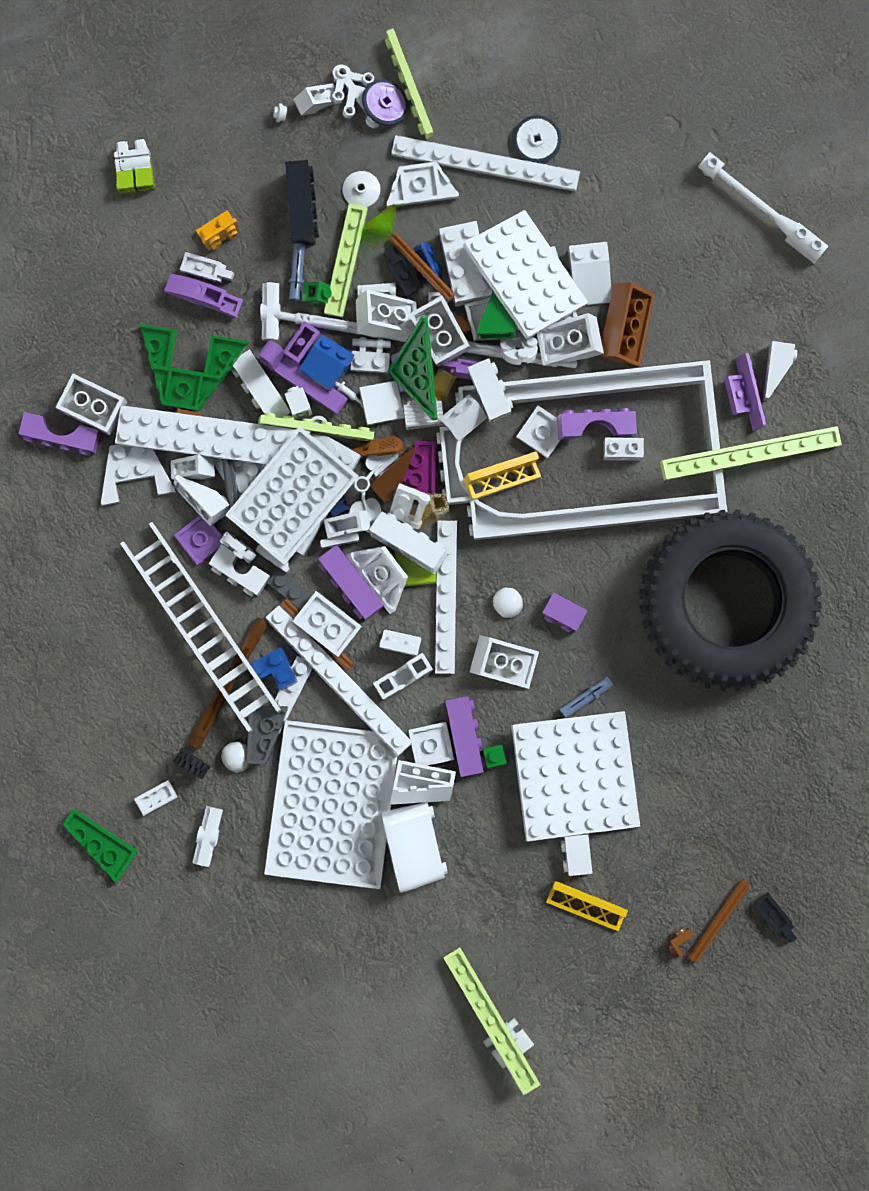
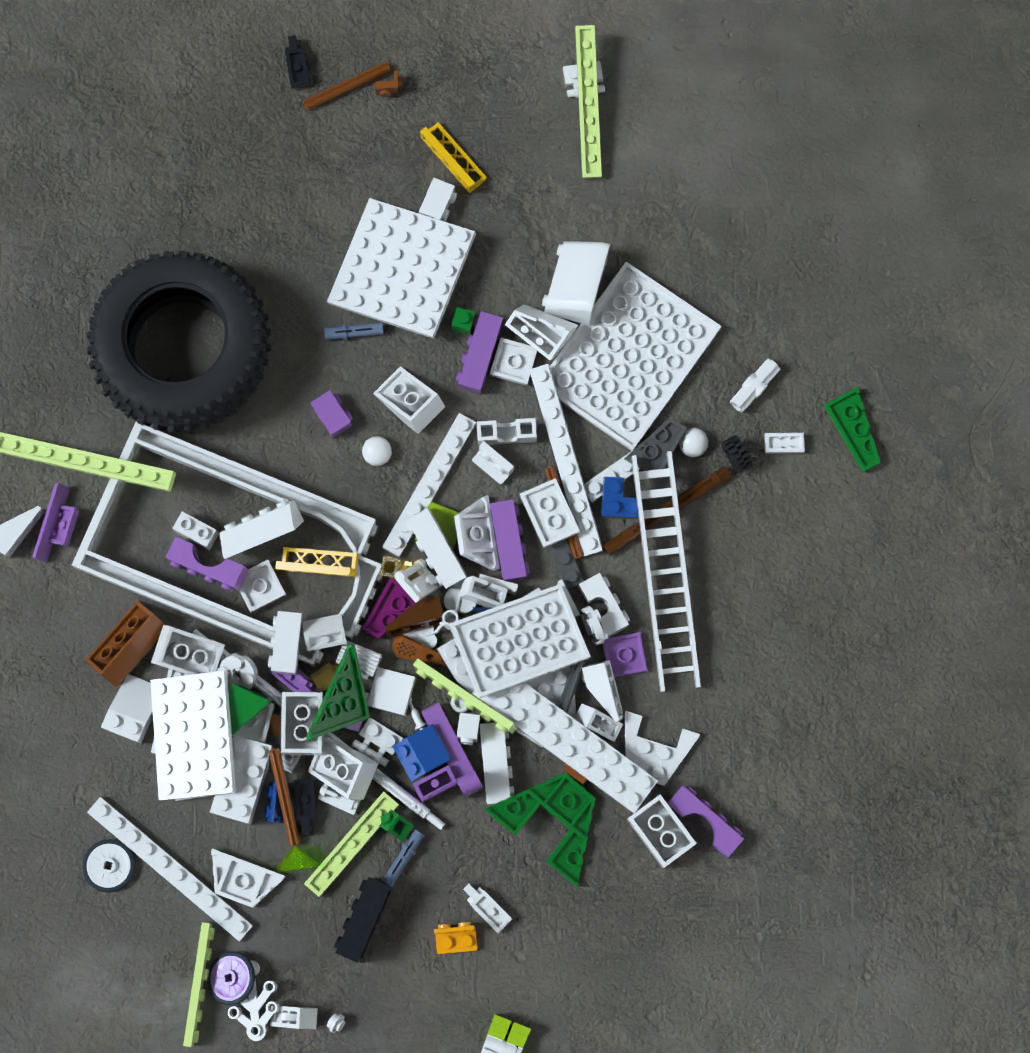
camera: 150 degrees left, 5 degrees down
(204, 294) = (502, 881): medium lavender slope -> none
(270, 311) = (448, 832): white piece -> none
(365, 197) = (310, 909): white dish -> none
(567, 475) = (260, 528): none -> white slope

